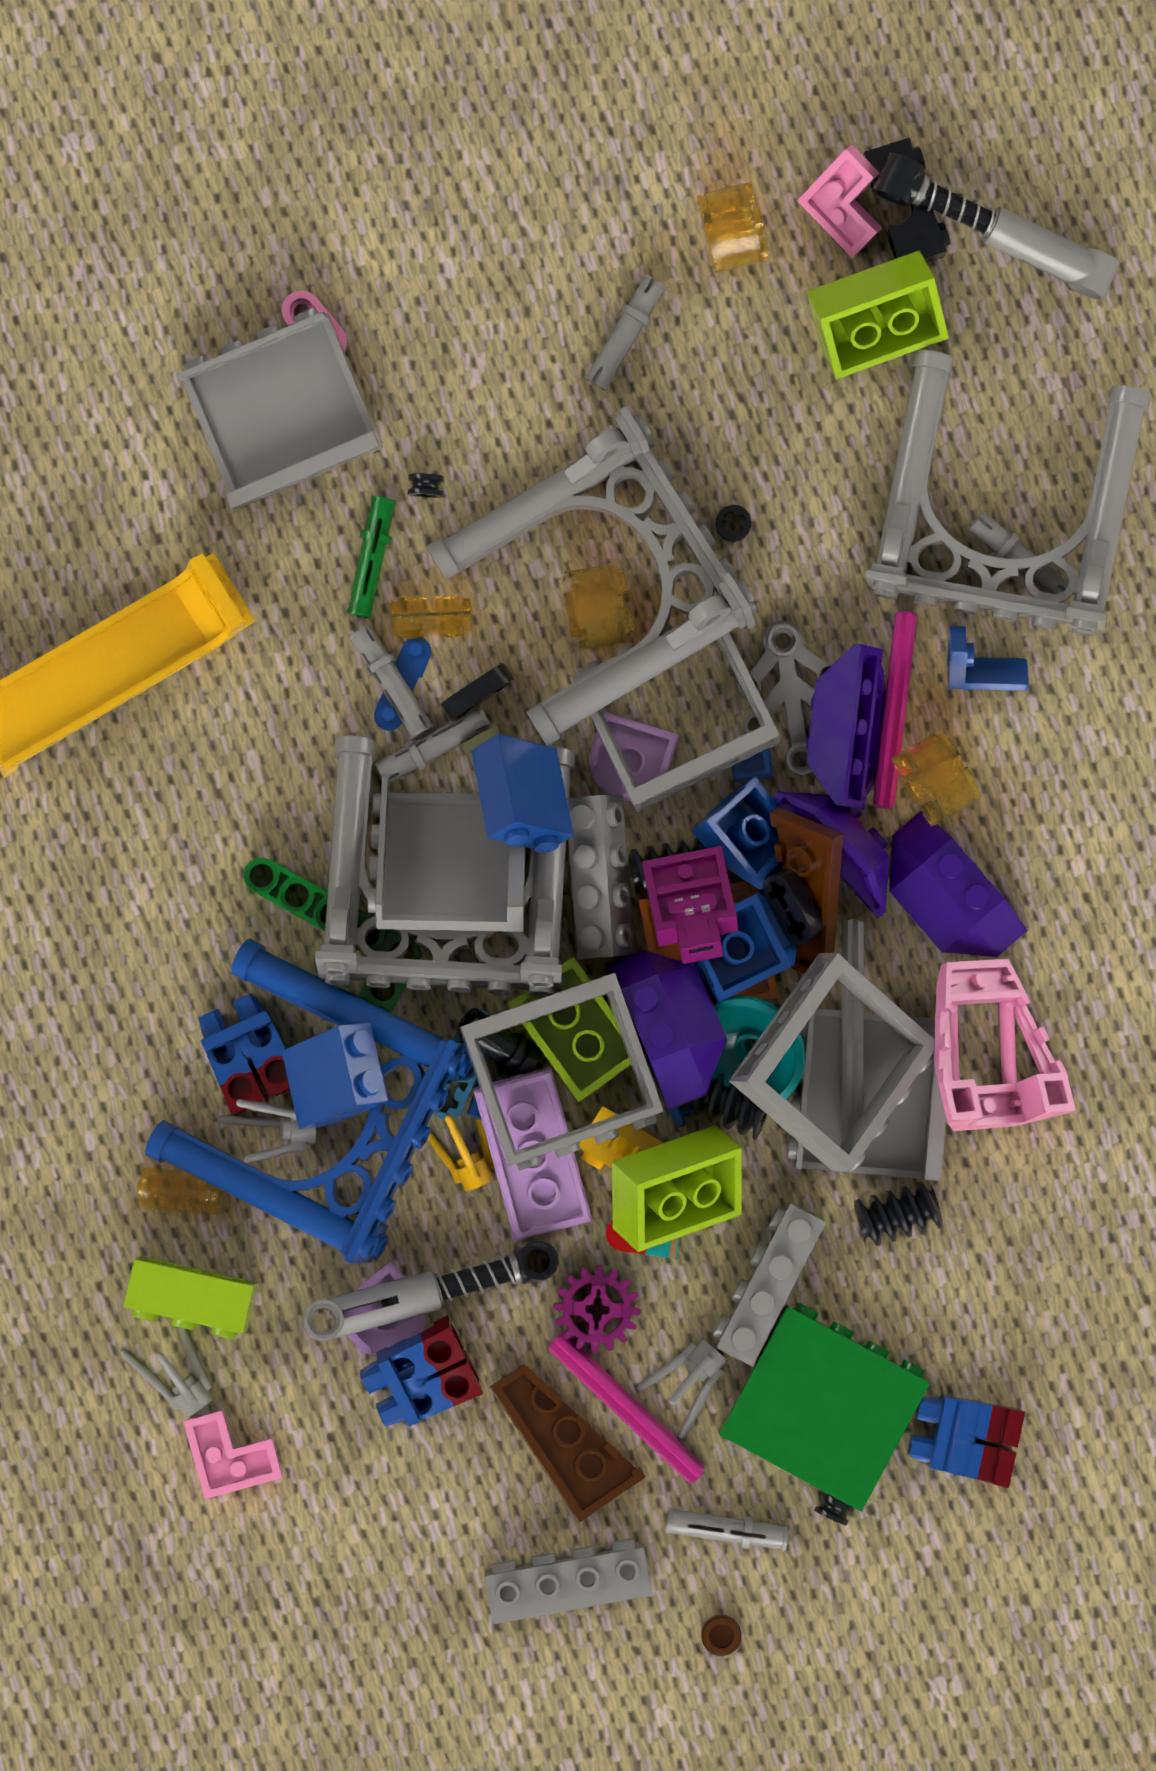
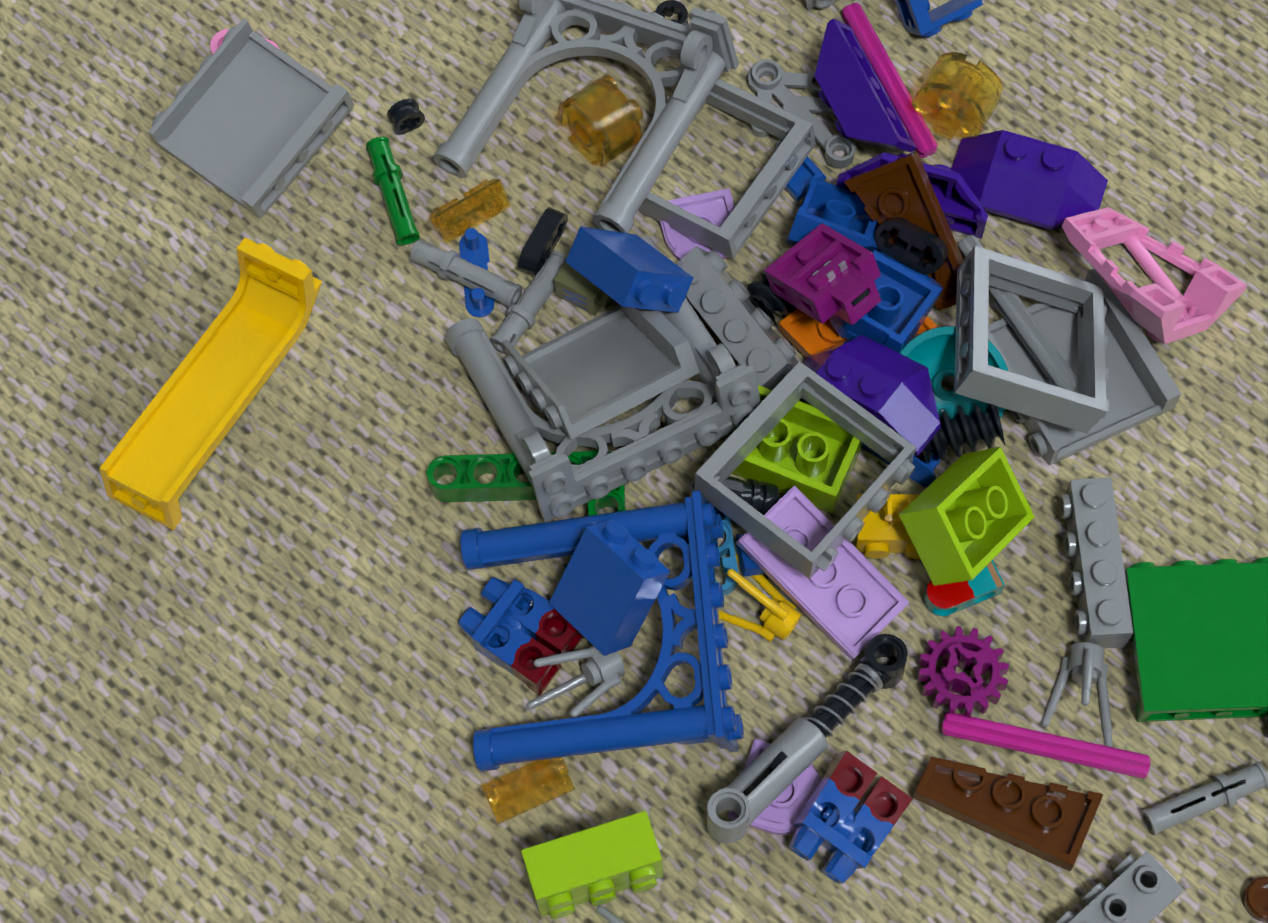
camera: 25 degrees left, 20 degrees down
(898, 1213) = (1162, 444): black piece -> none

